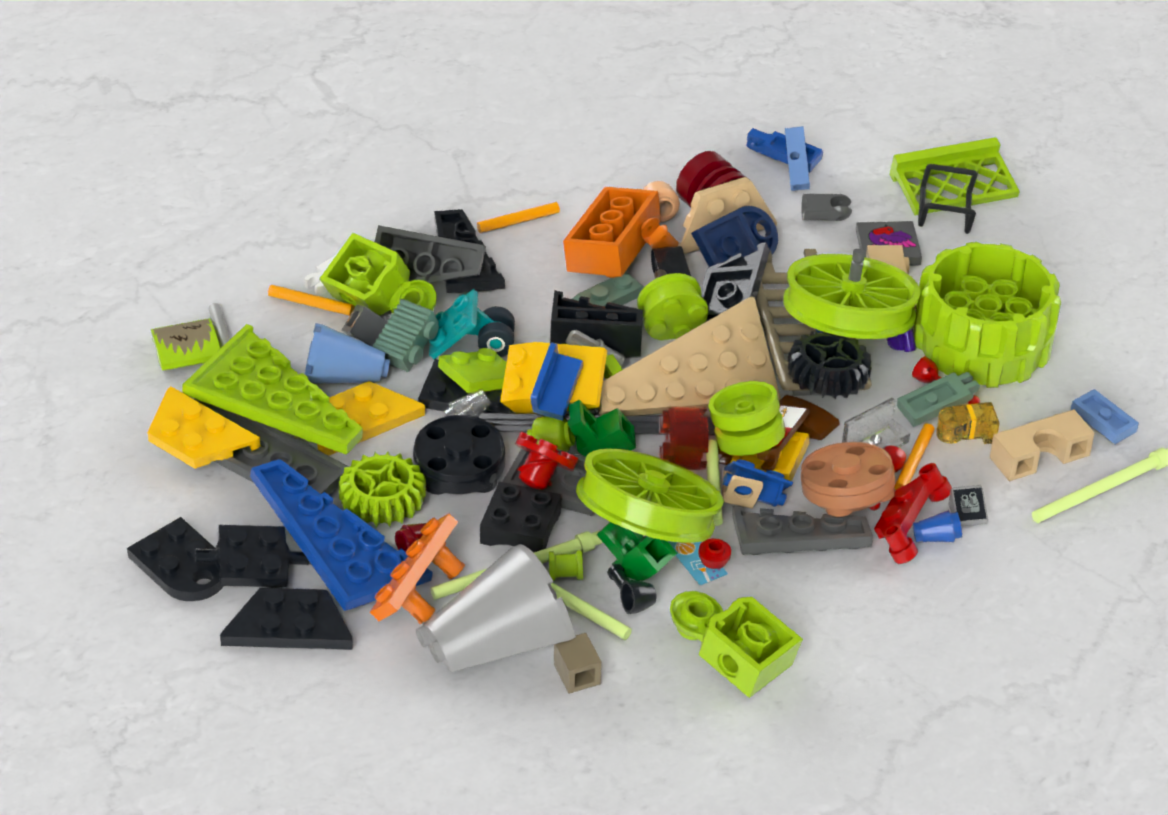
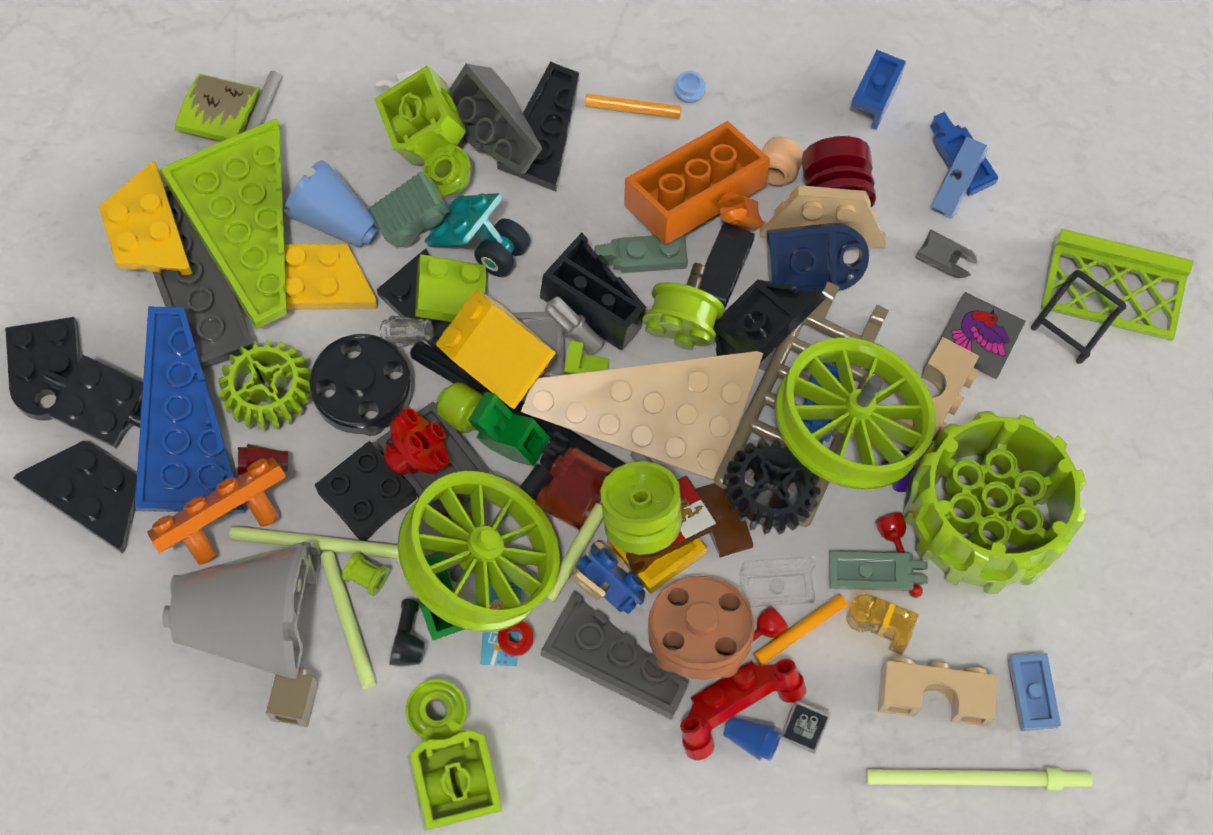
camera: 30 degrees right, 25 degrees up
(310, 300) = (362, 106): light orange bar -> none
(364, 325) = (387, 173): dark grey panel -> none
(551, 188) = (689, 86): none -> light blue plate
(555, 384) = (479, 365): blue panel -> none
(649, 431) = (540, 474): none -> black bar
(693, 129) = (878, 85): none -> blue panel

